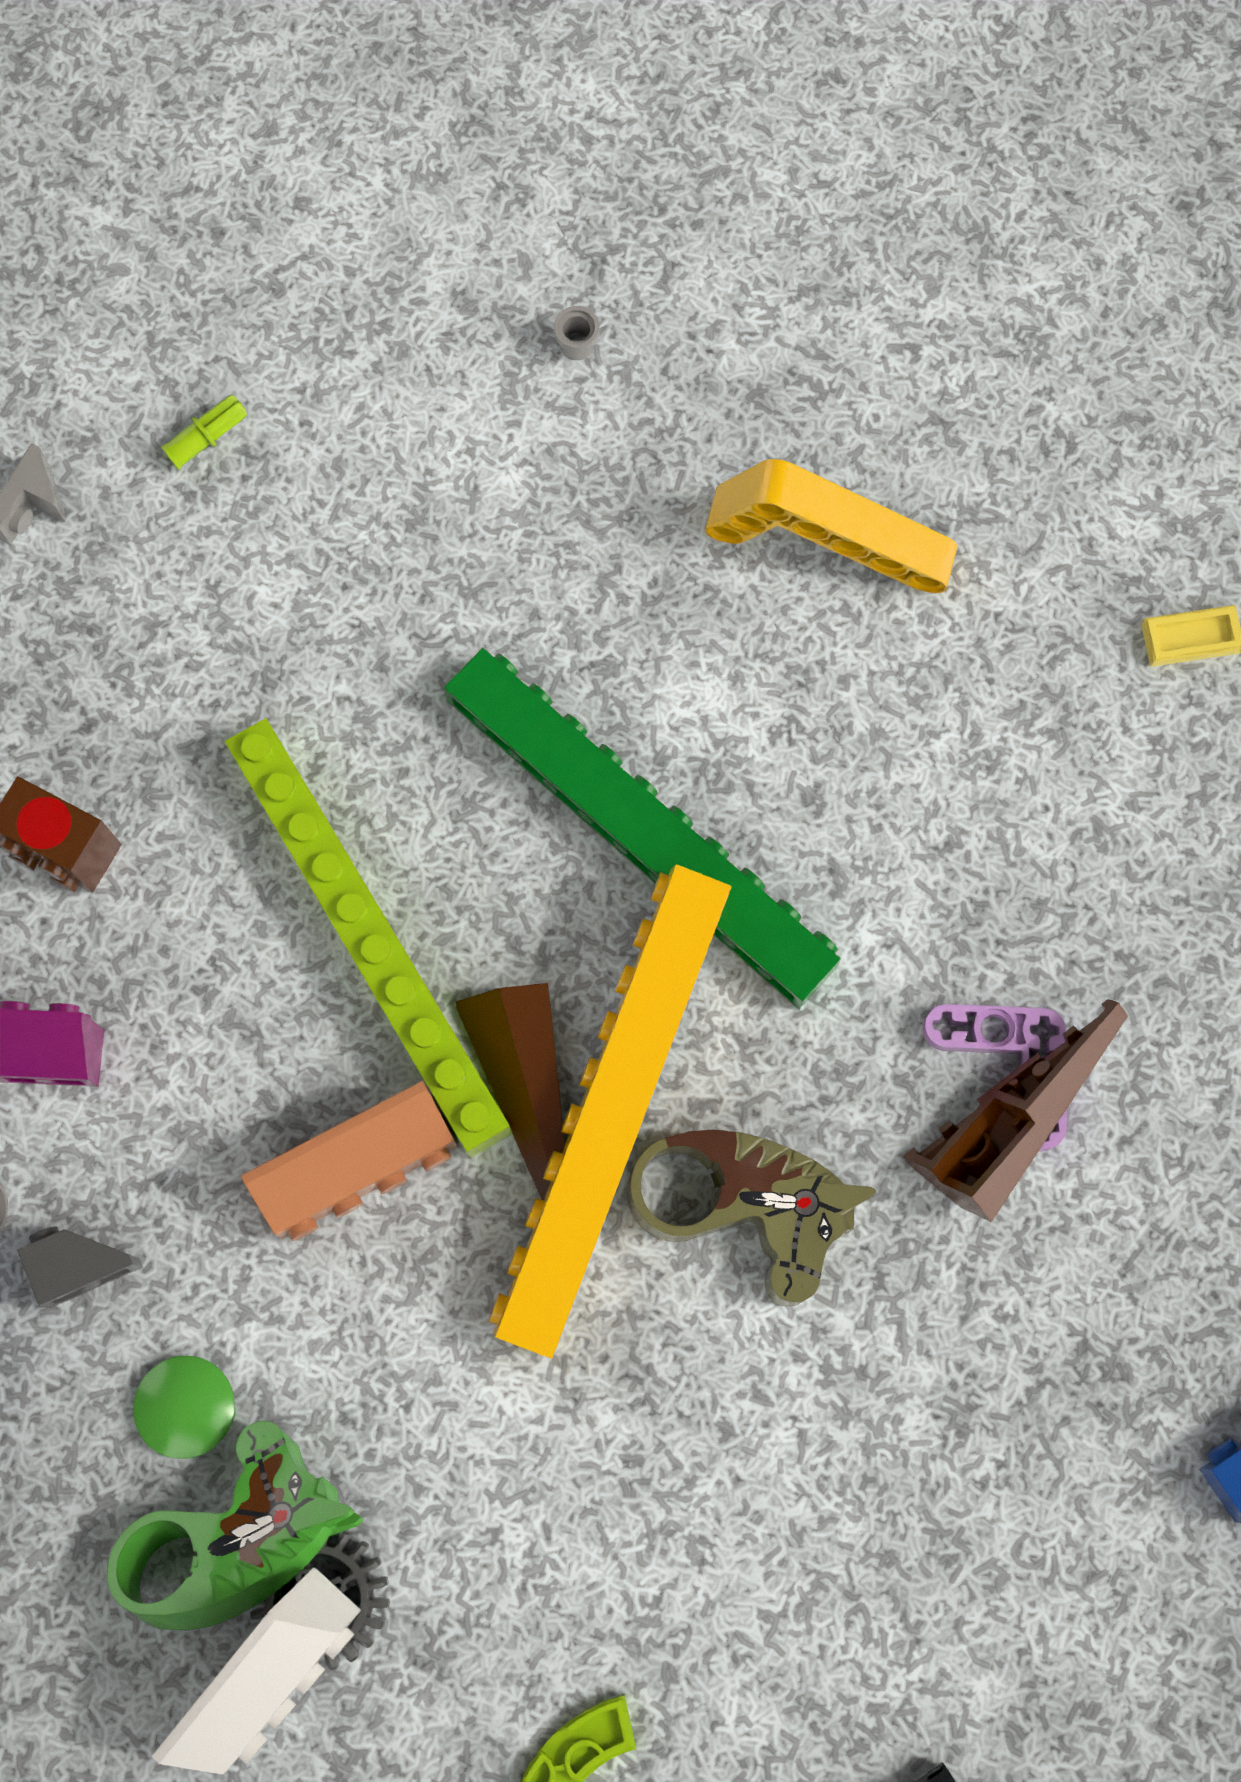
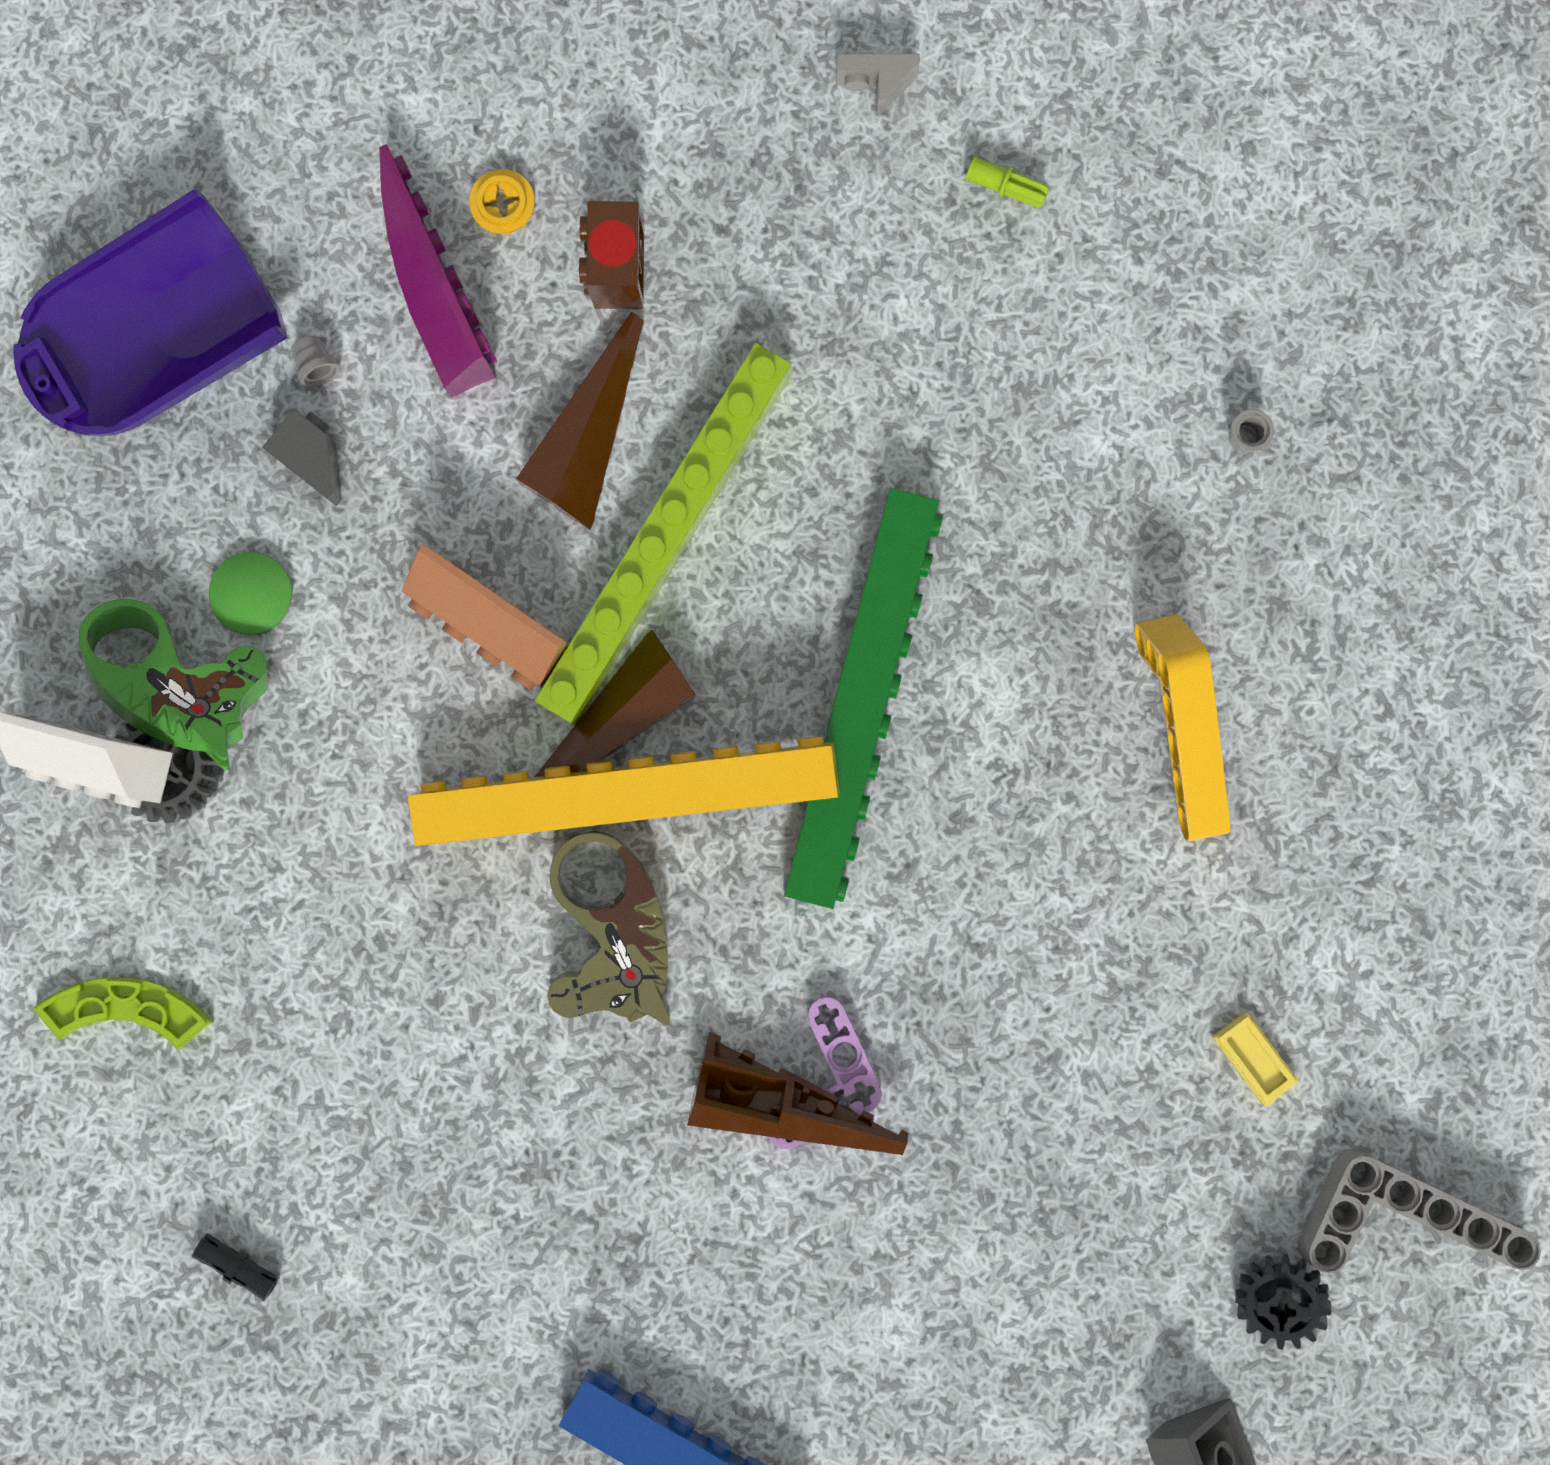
camera: 65 degrees right, 10 degrees up
(230, 983) = (575, 452): none -> reddish brown wedge

